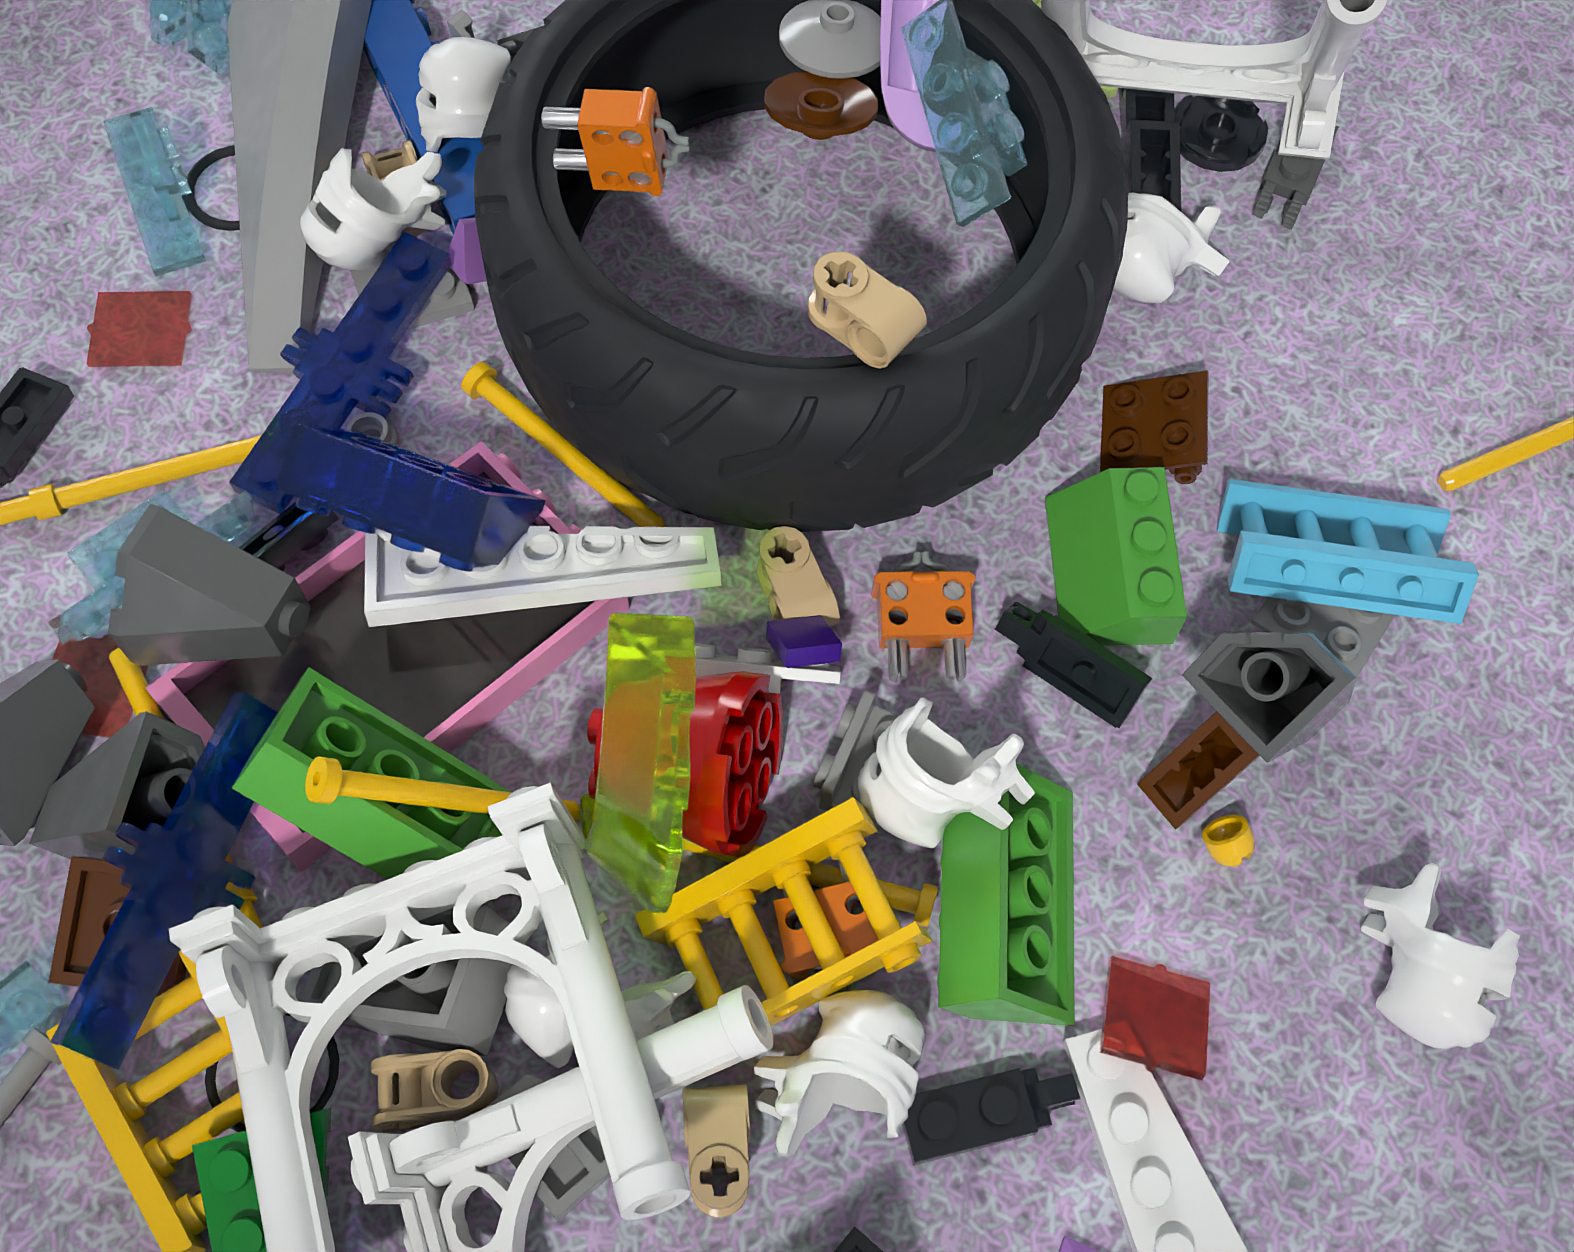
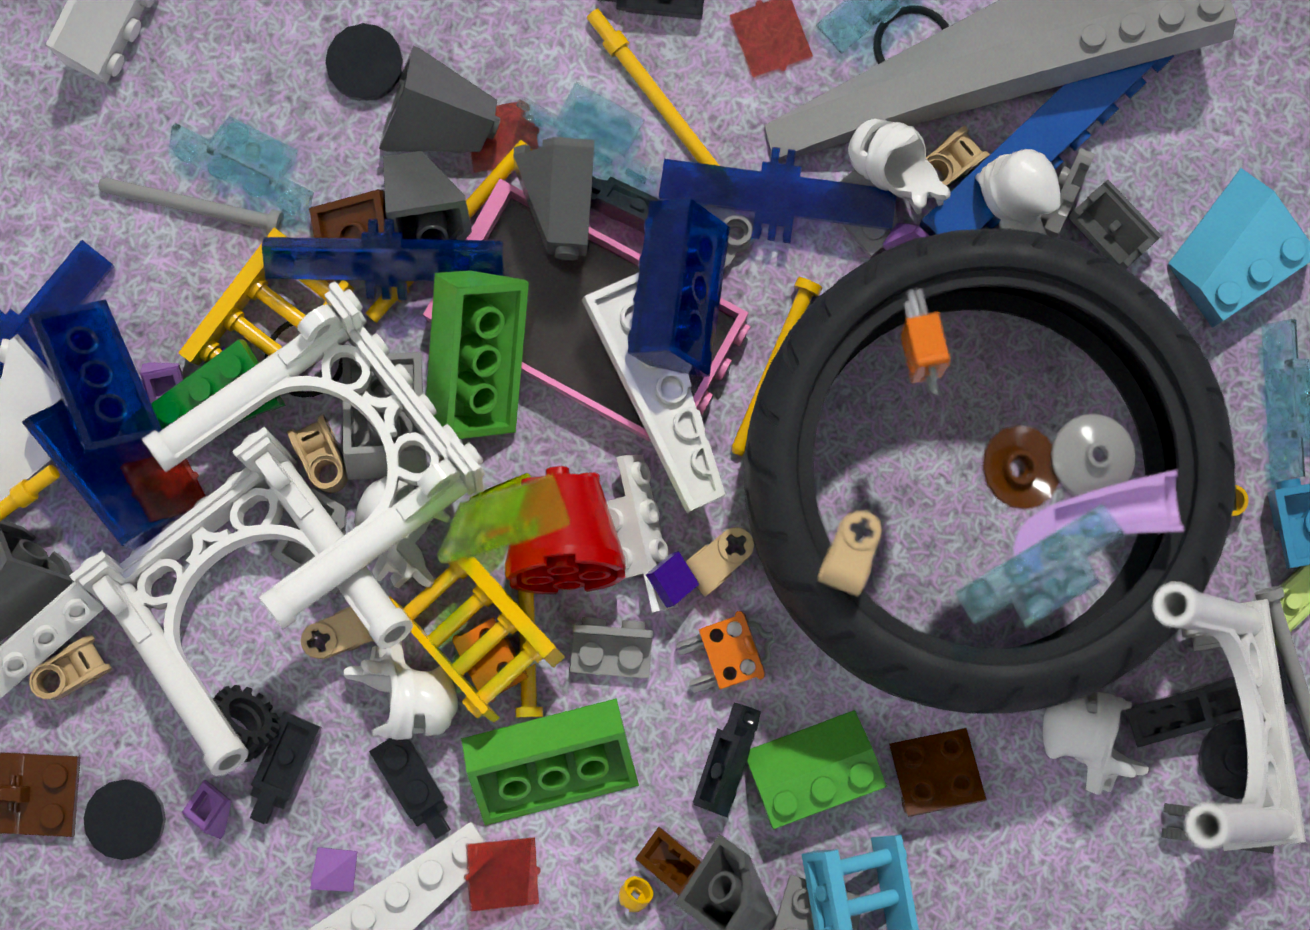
camera: 75 degrees right, 20 degrees up
(327, 780) = (448, 333): yellow bar -> none
(928, 777) = (596, 688): white piece -> none

